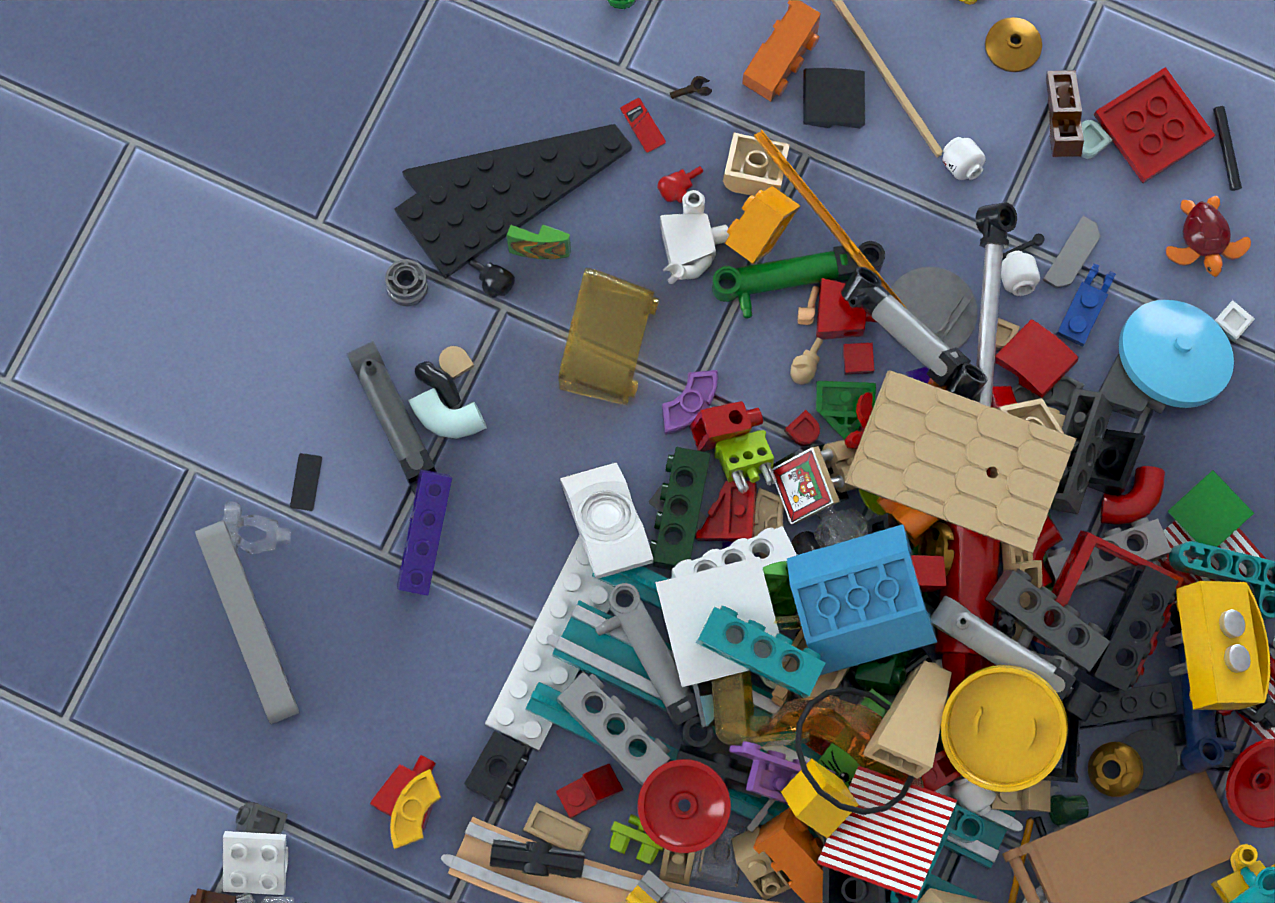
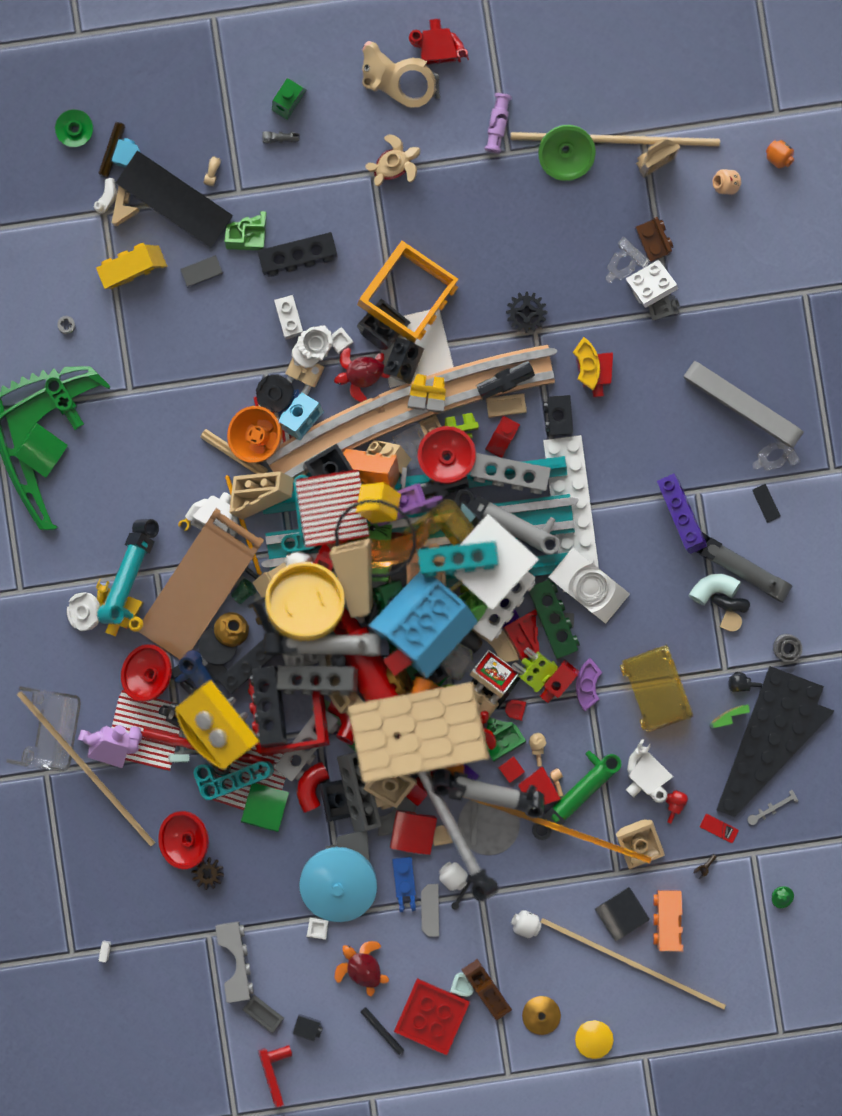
camera: 145 degrees right, 10 degrees up
(593, 108) = (752, 819): none -> light grey piece
(761, 224) = (613, 806): light orange brick -> none

